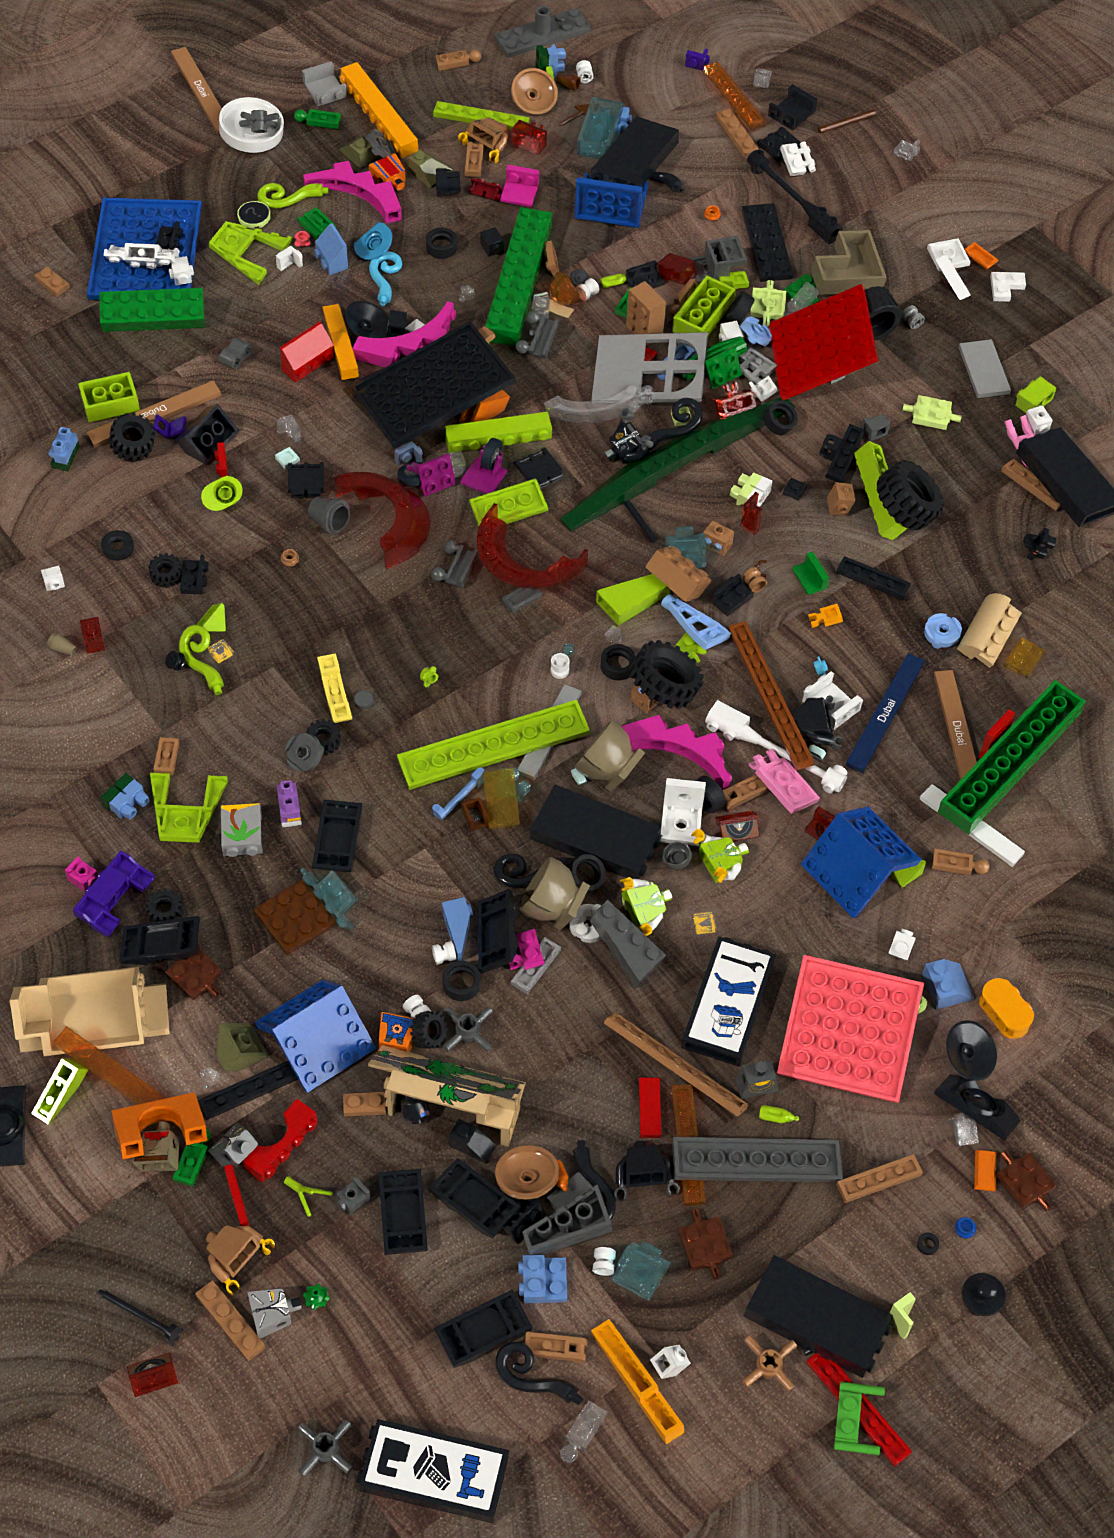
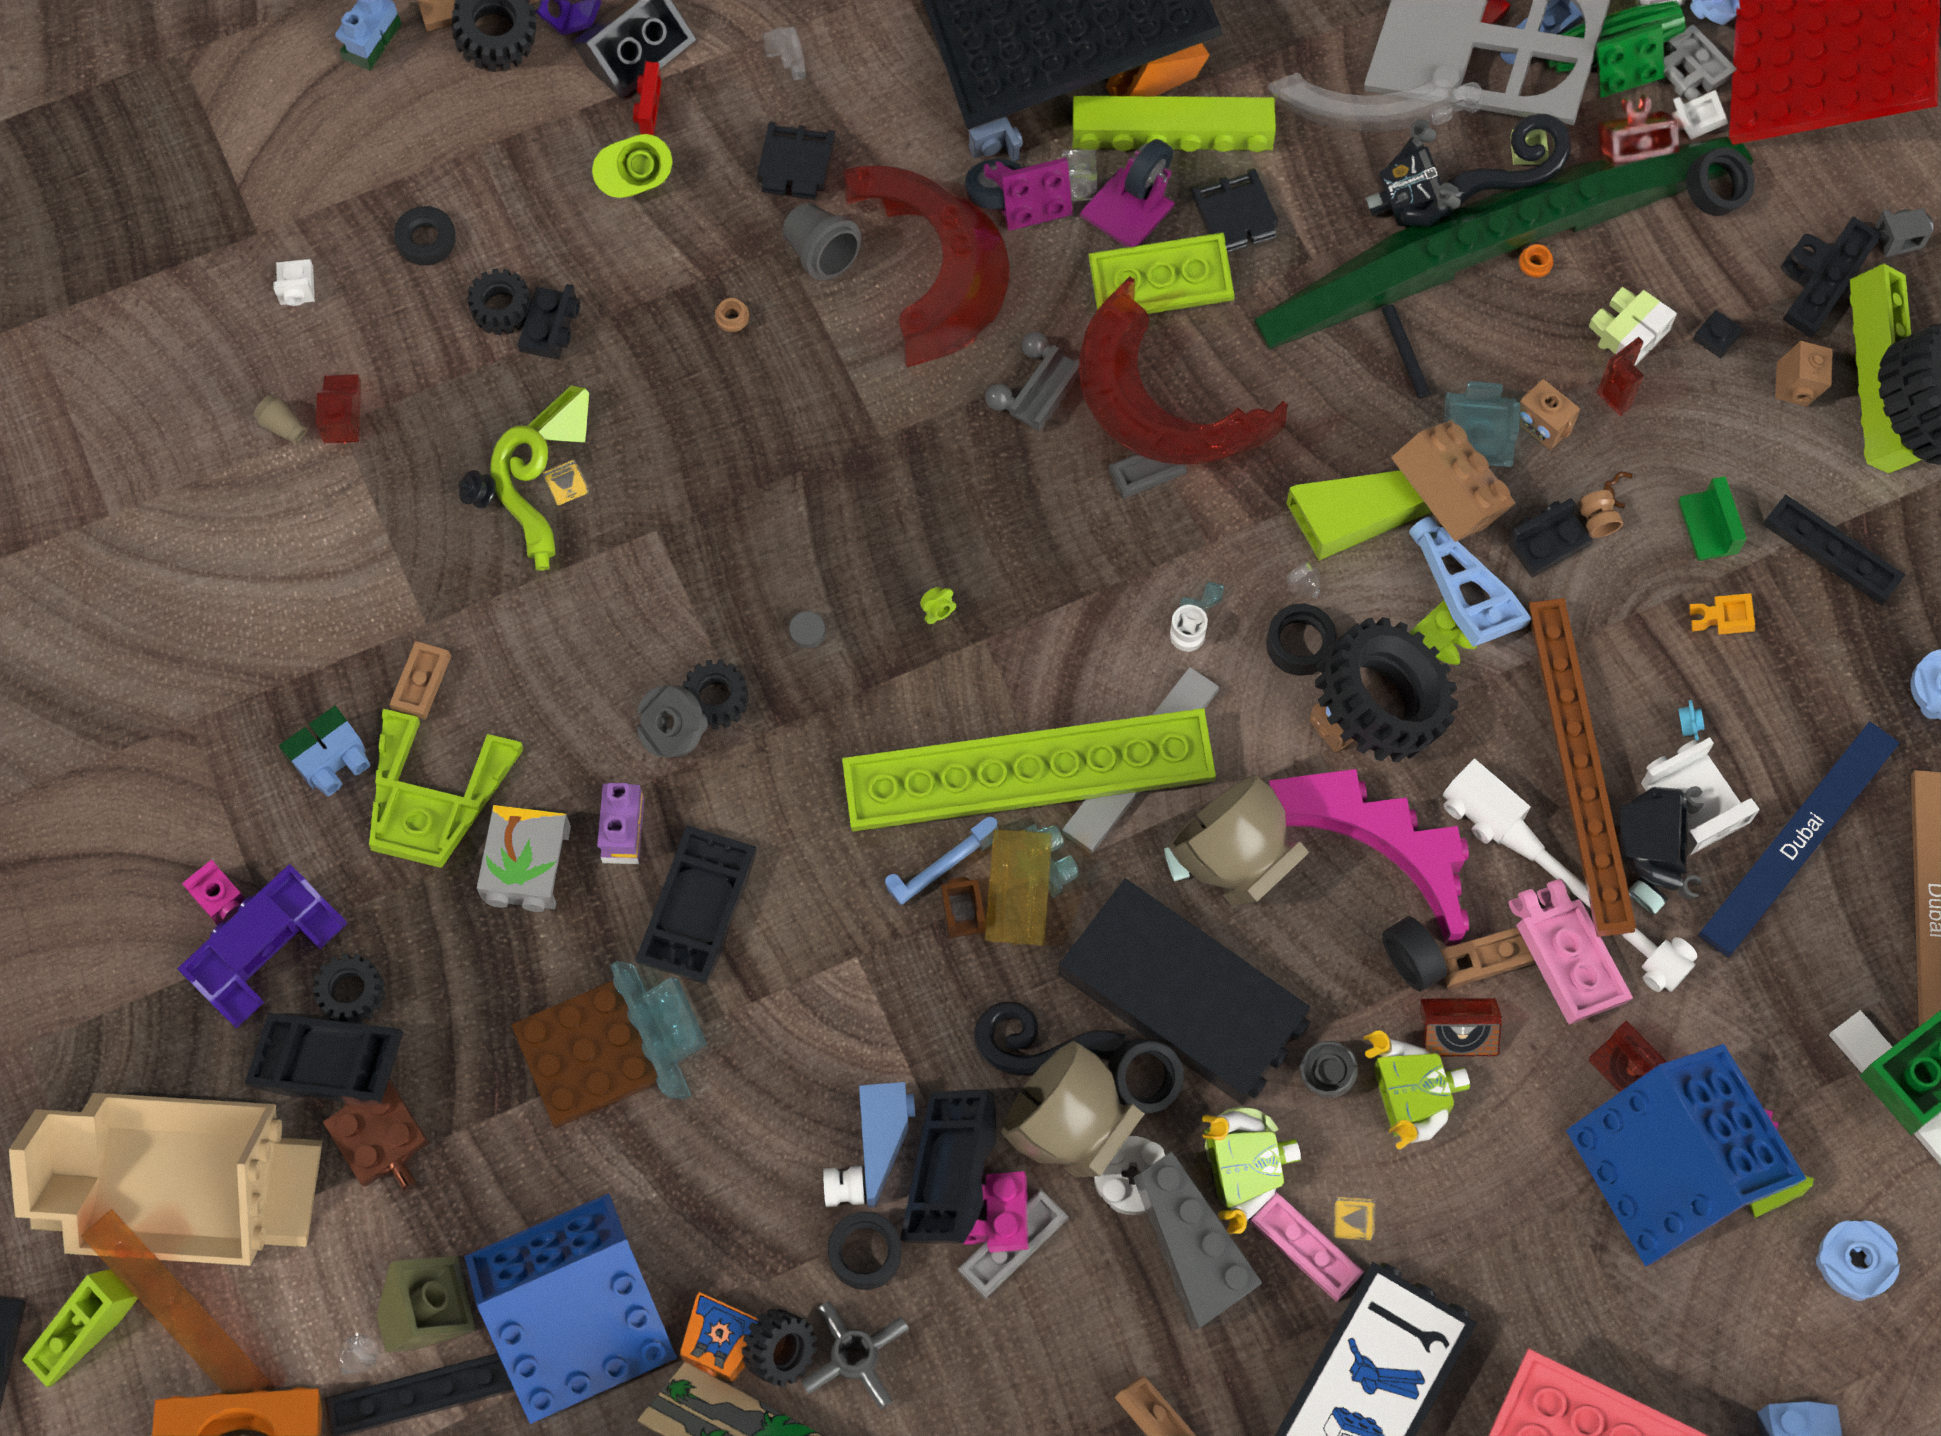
camera: 15 degrees right, 10 degrees up
(287, 456) = (771, 108): light aqua tile -> none
(334, 688) = (756, 599): light yellow slope -> none
(415, 1005) = (768, 1291): white wheel -> none
(682, 805) = (1359, 967): white bracket -> none
(683, 940) = (1306, 1247): none -> bright pink tile
(696, 469) = (1536, 253): none -> orange plate
(902, 944) = (1732, 1343): white bracket -> none
(952, 905) = (1843, 1275): none -> light blue plate
(958, 862) = (1878, 1189): medium nougat plate -> none

